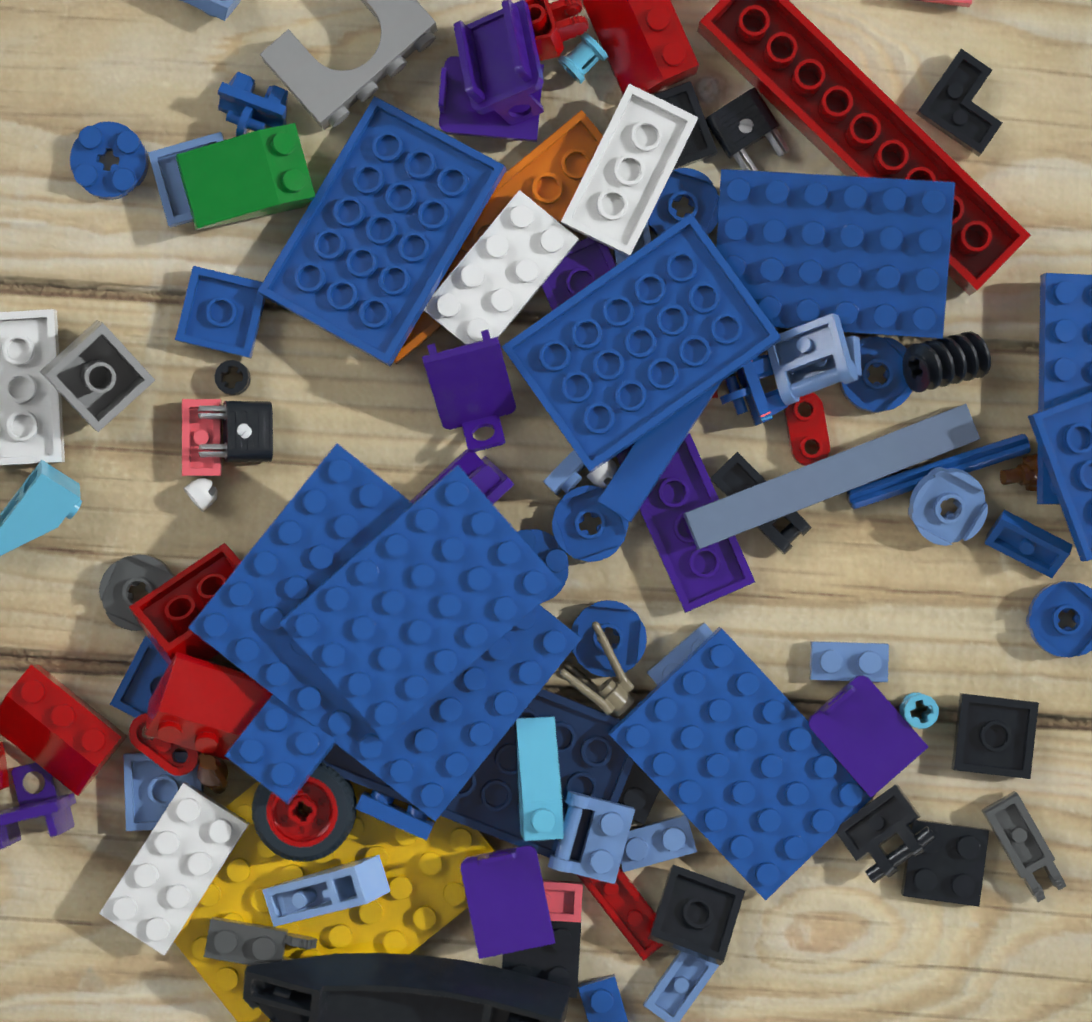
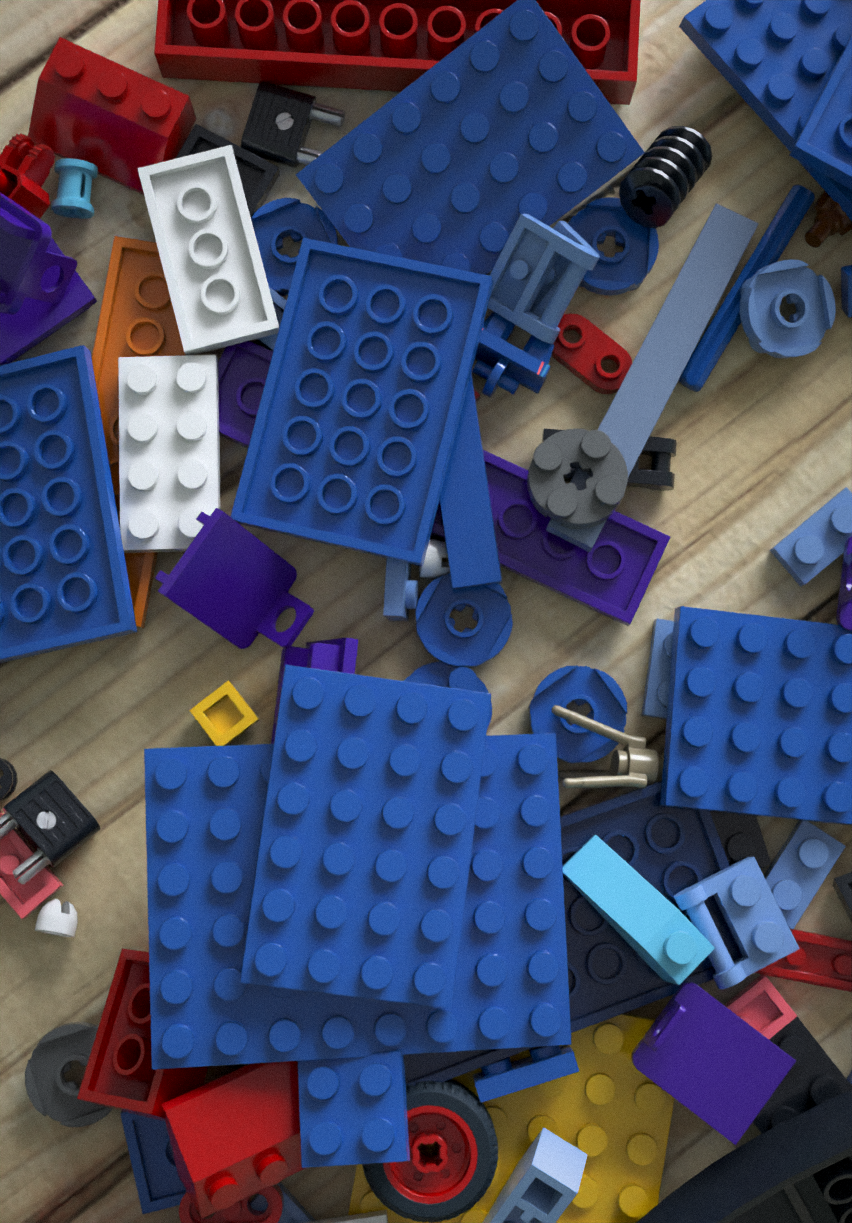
camera: 50 degrees left, 5 degrees down
(212, 773) = (305, 1193): reddish brown piece -> none
(400, 458) = (224, 714): none -> yellow plate
(747, 490) = (589, 452): none -> dark grey plate

